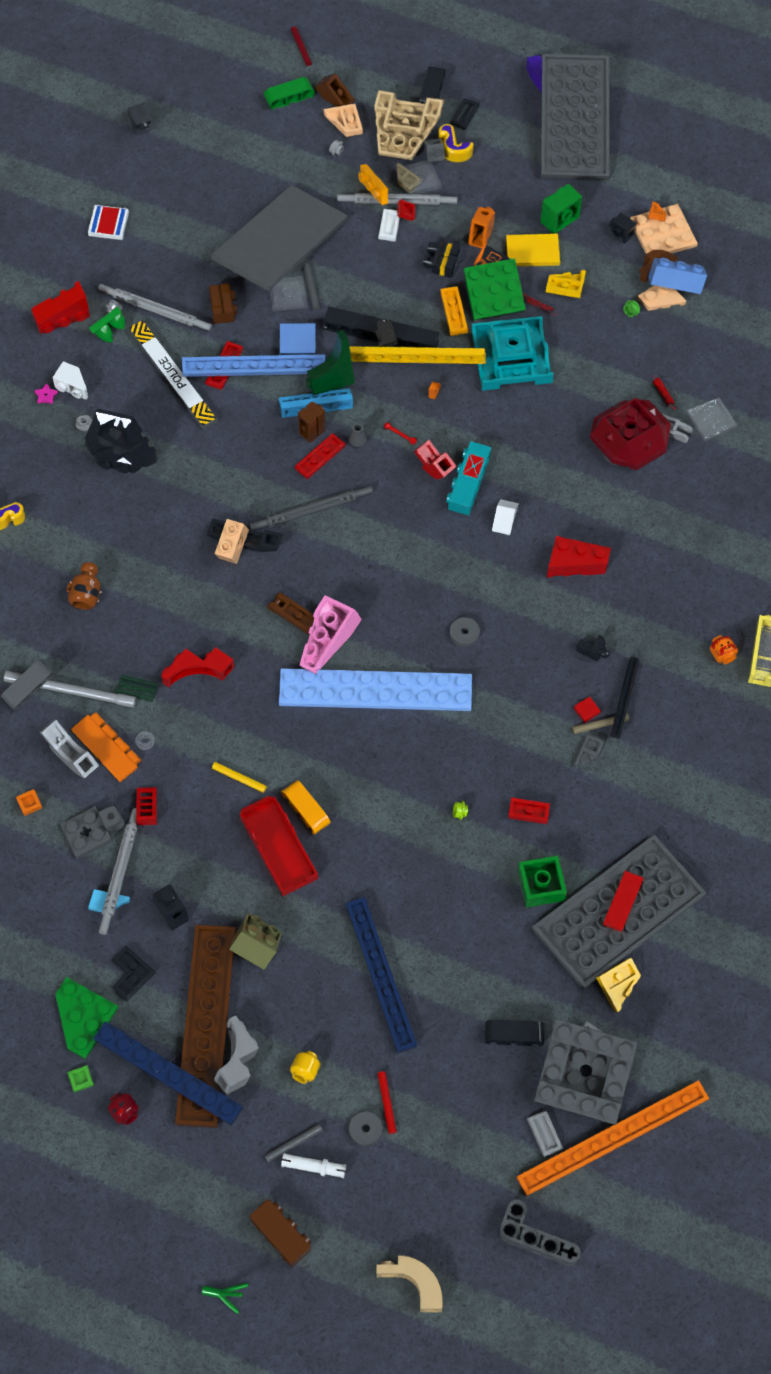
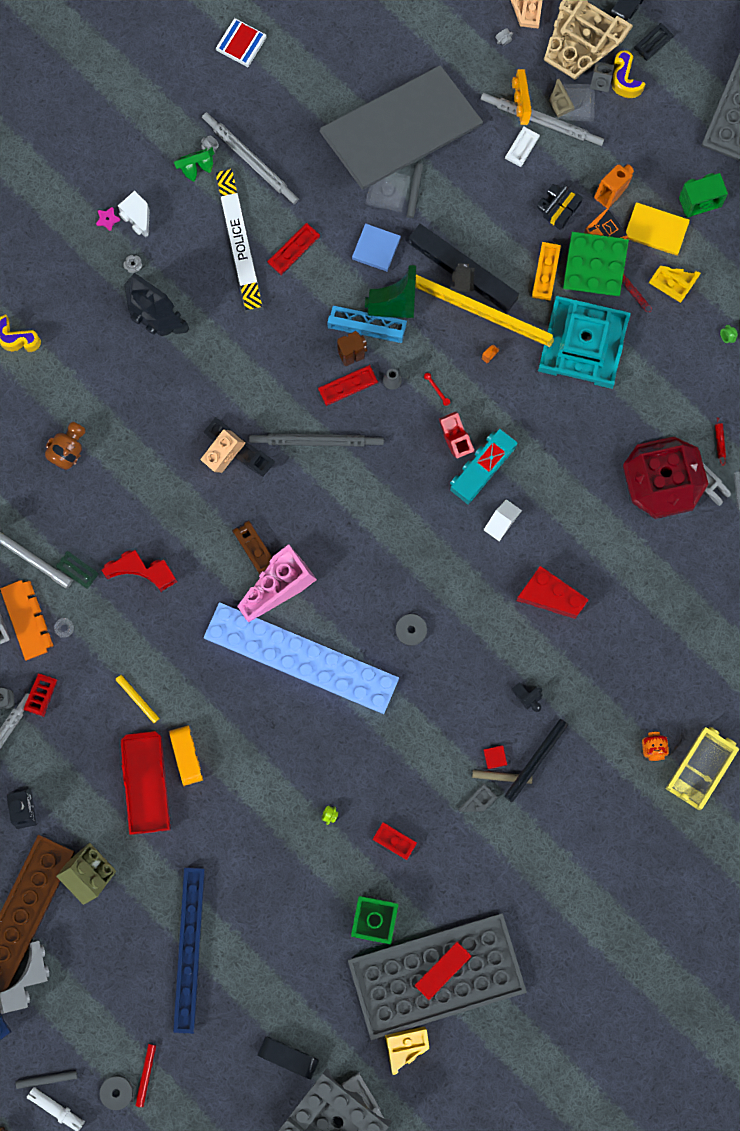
camera: 25 degrees right, 15 degrees up
(62, 310) = (155, 131): red wedge -> none
(221, 303) = (317, 179): reddish brown brick -> none
(250, 365) = (319, 261): medium blue plate -> none
(305, 1067) = (83, 1014): yellow head -> none
(406, 210) = (545, 136): red tile -> none

